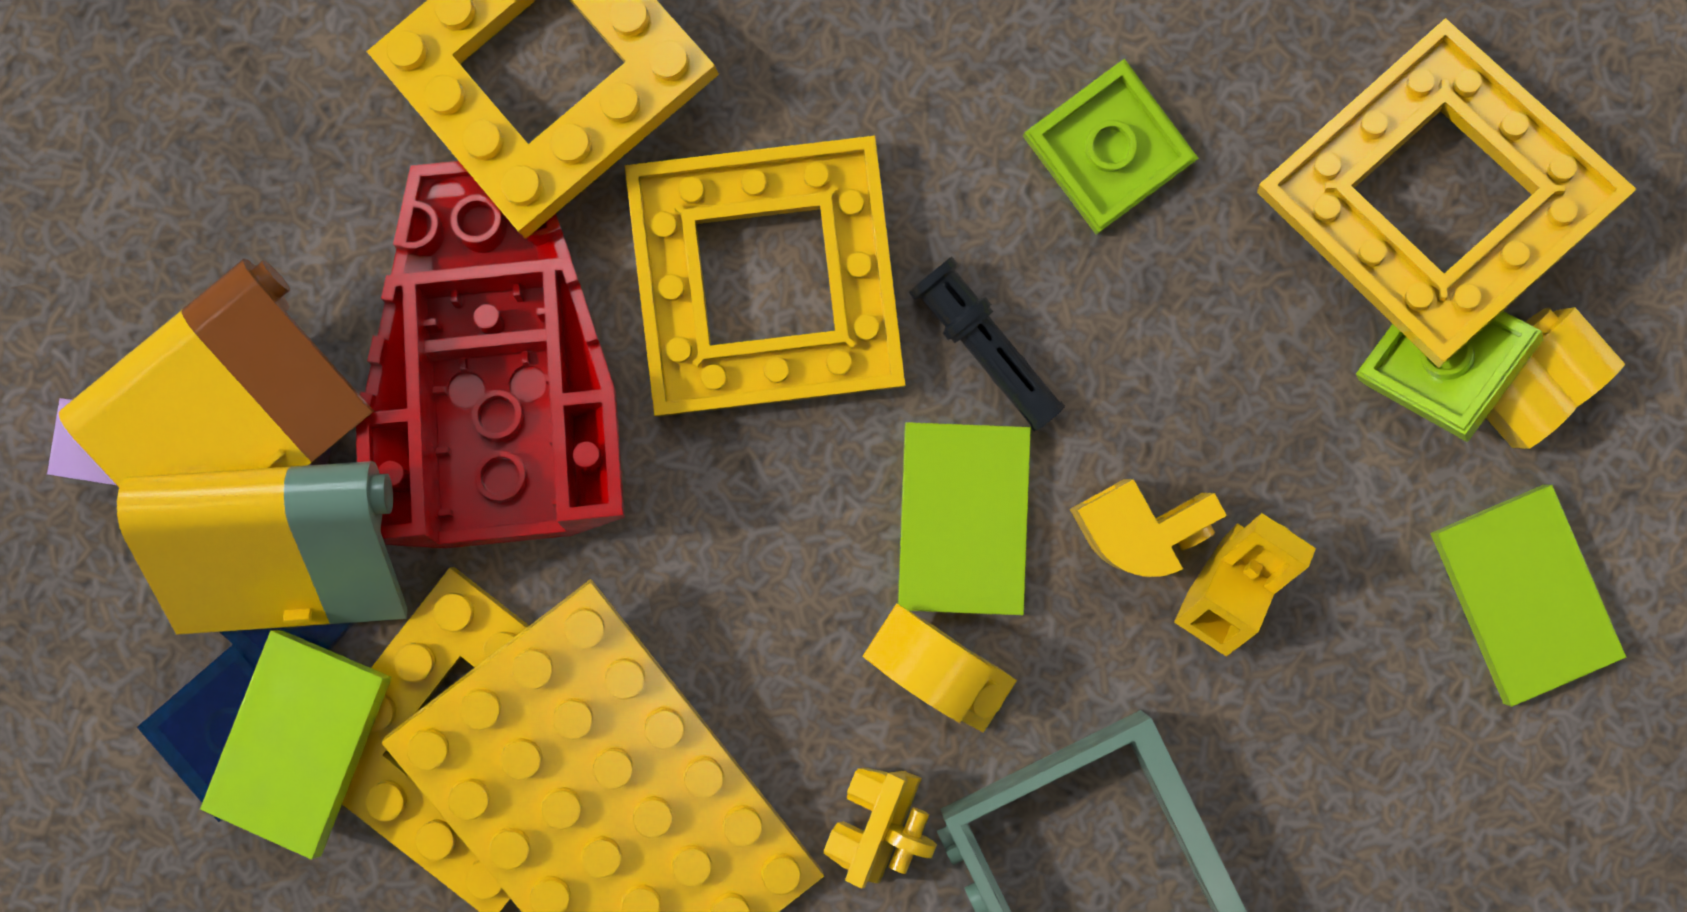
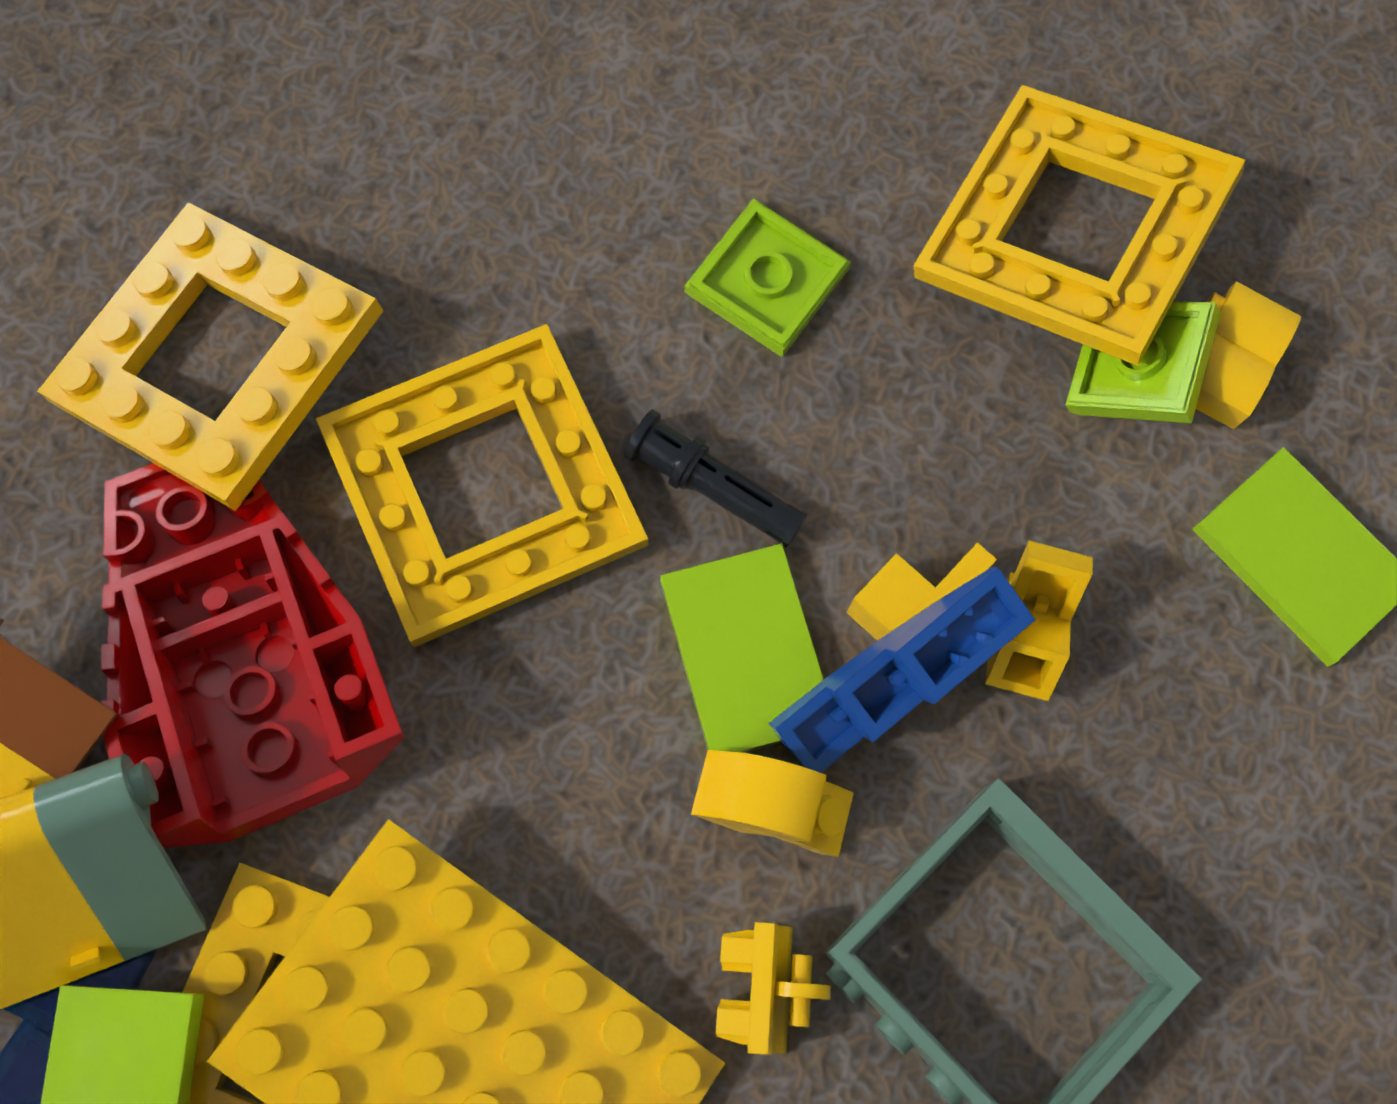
camera: 25 degrees left, 15 degrees down
(1103, 590) = (902, 669): none -> blue slope

